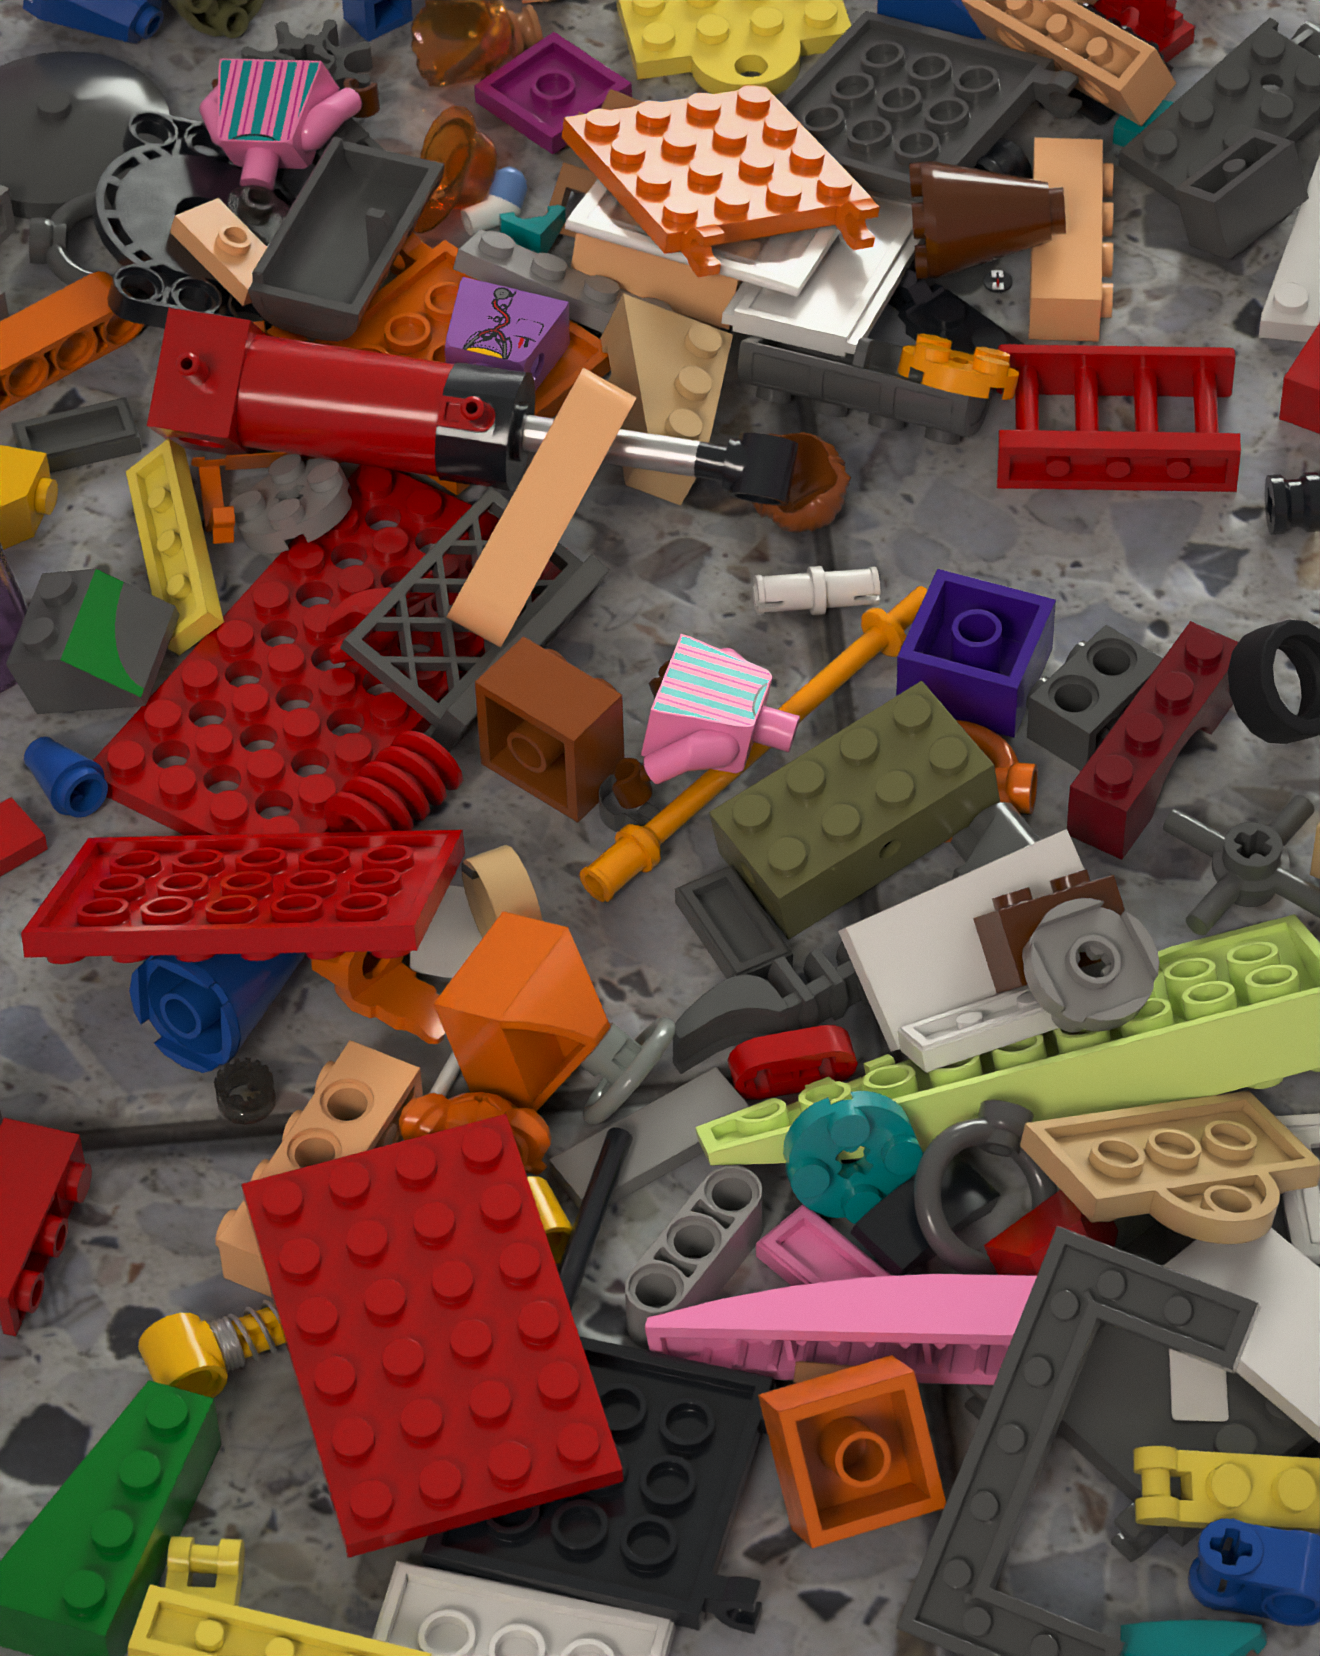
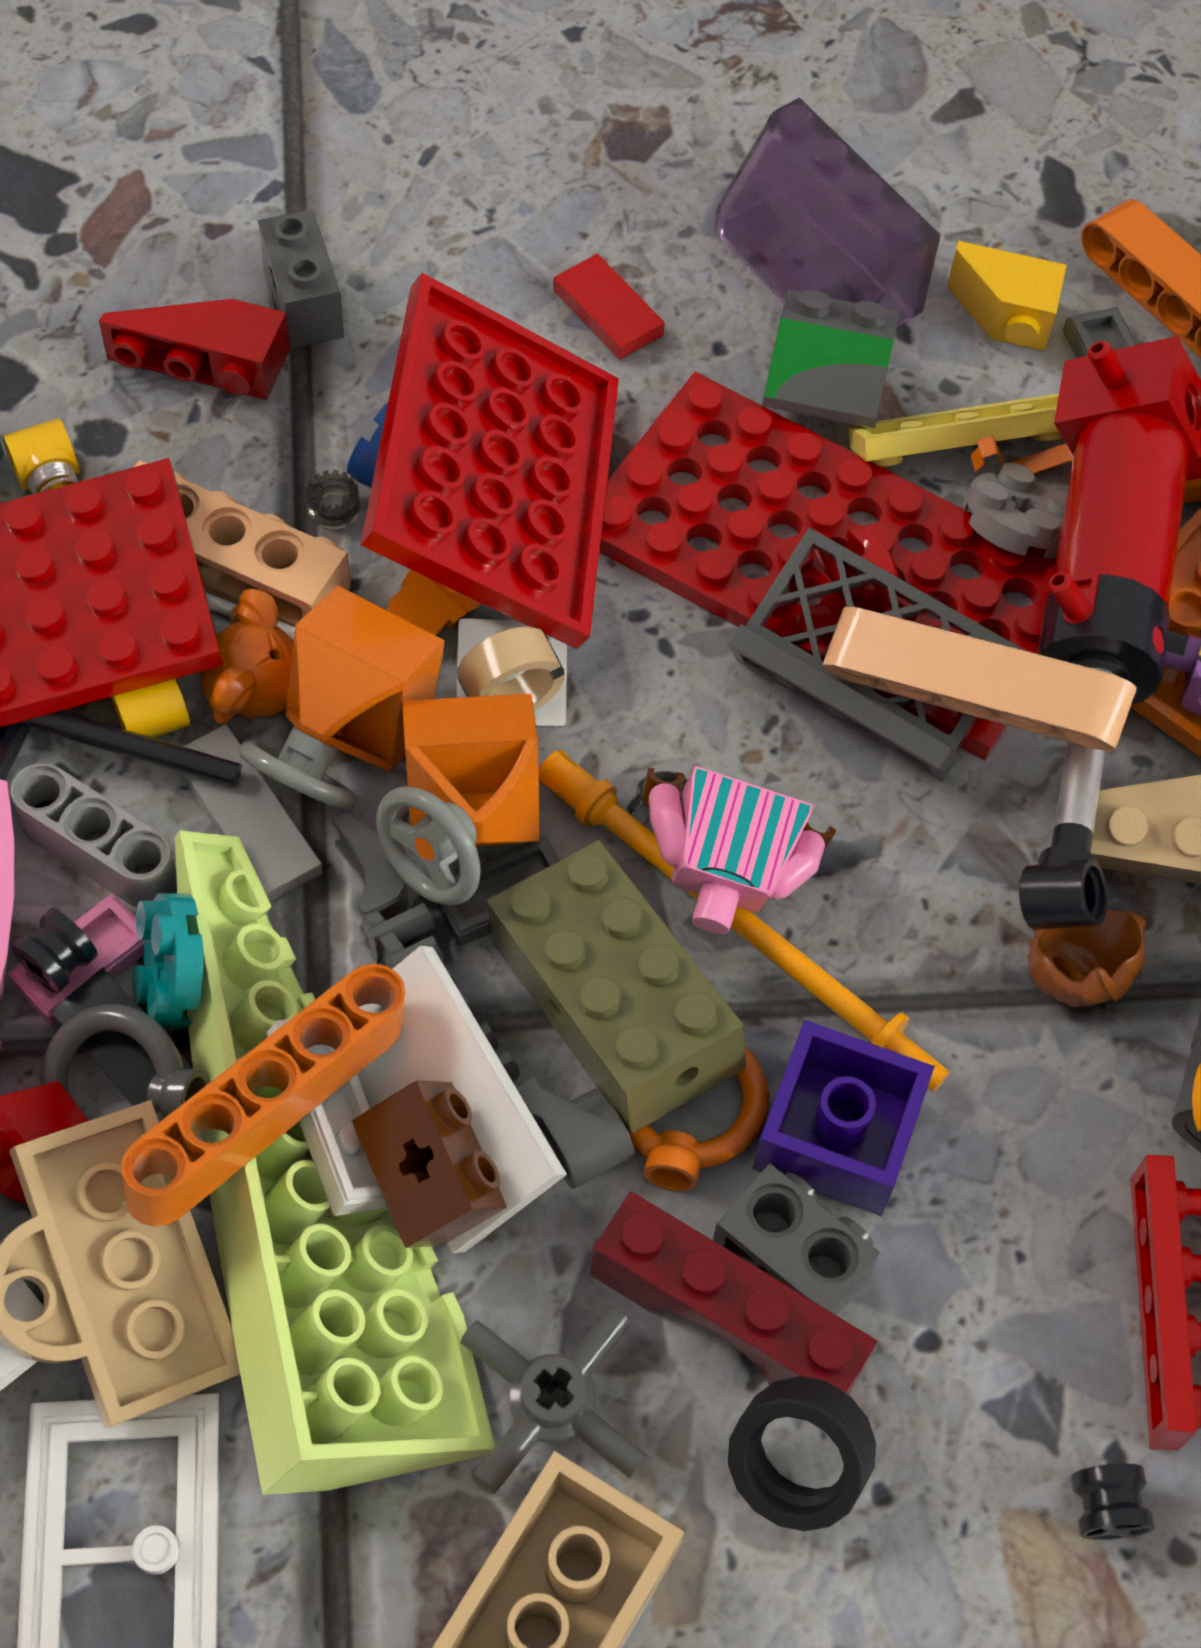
camera: 85 degrees right, 10 degrees up
(66, 777) = (686, 357): blue cone -> none
(395, 787) = (656, 600): red piece -> none
(549, 727) = (722, 705): dark orange brick -> none
(653, 913) = (465, 788): none -> orange piece
(790, 1060) = (318, 928): red beam -> none
(816, 590) = (946, 977): white pin -> none
(842, 1253) = (54, 951): none -> black wheel
(1019, 1025) = (258, 1121): none -> orange beam
(1070, 994) = (390, 1193): light grey plate -> none

